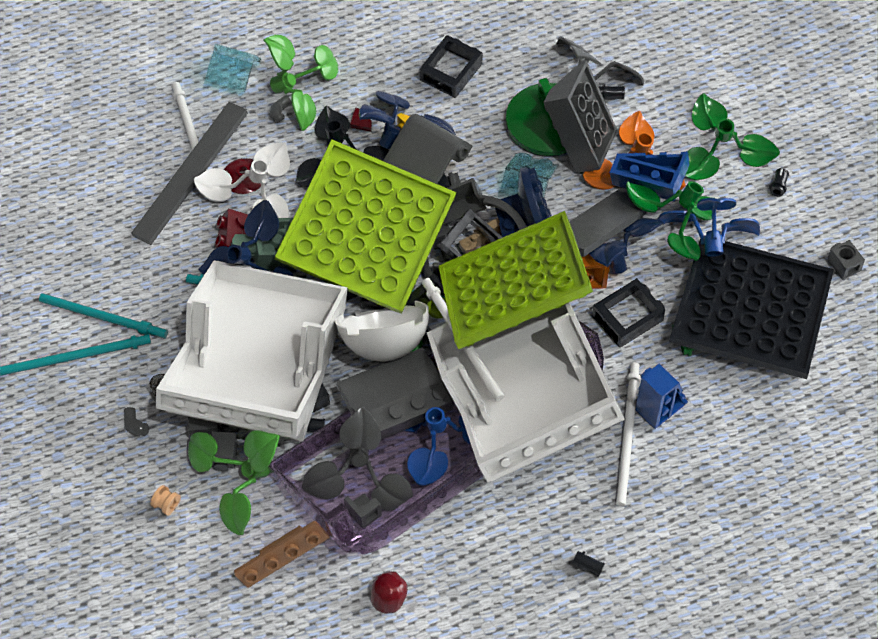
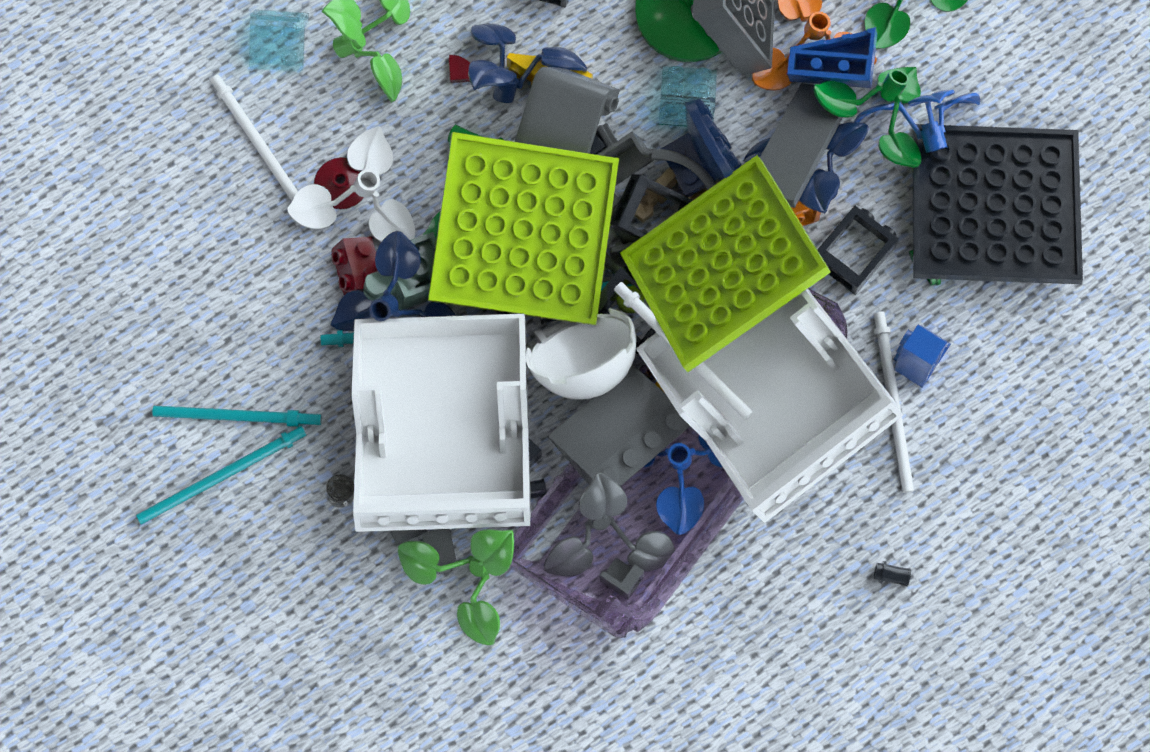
camera: 15 degrees left, 15 degrees up
(133, 425) = (321, 545): dark grey arm -> none
(165, 500) = (393, 628): light nougat wheel -> none
(183, 180) = (277, 198): dark grey tile -> none
(277, 107) = (352, 80): dark grey arm -> none
(281, 553) = (549, 656): medium nougat bracket -> none
(328, 127) = (430, 87): black plant -> none
(388, 592) = (681, 668): dark red hair -> none
(778, 186) = (987, 33): black pin -> none
(844, 267) = (1088, 124): dark grey brick -> none

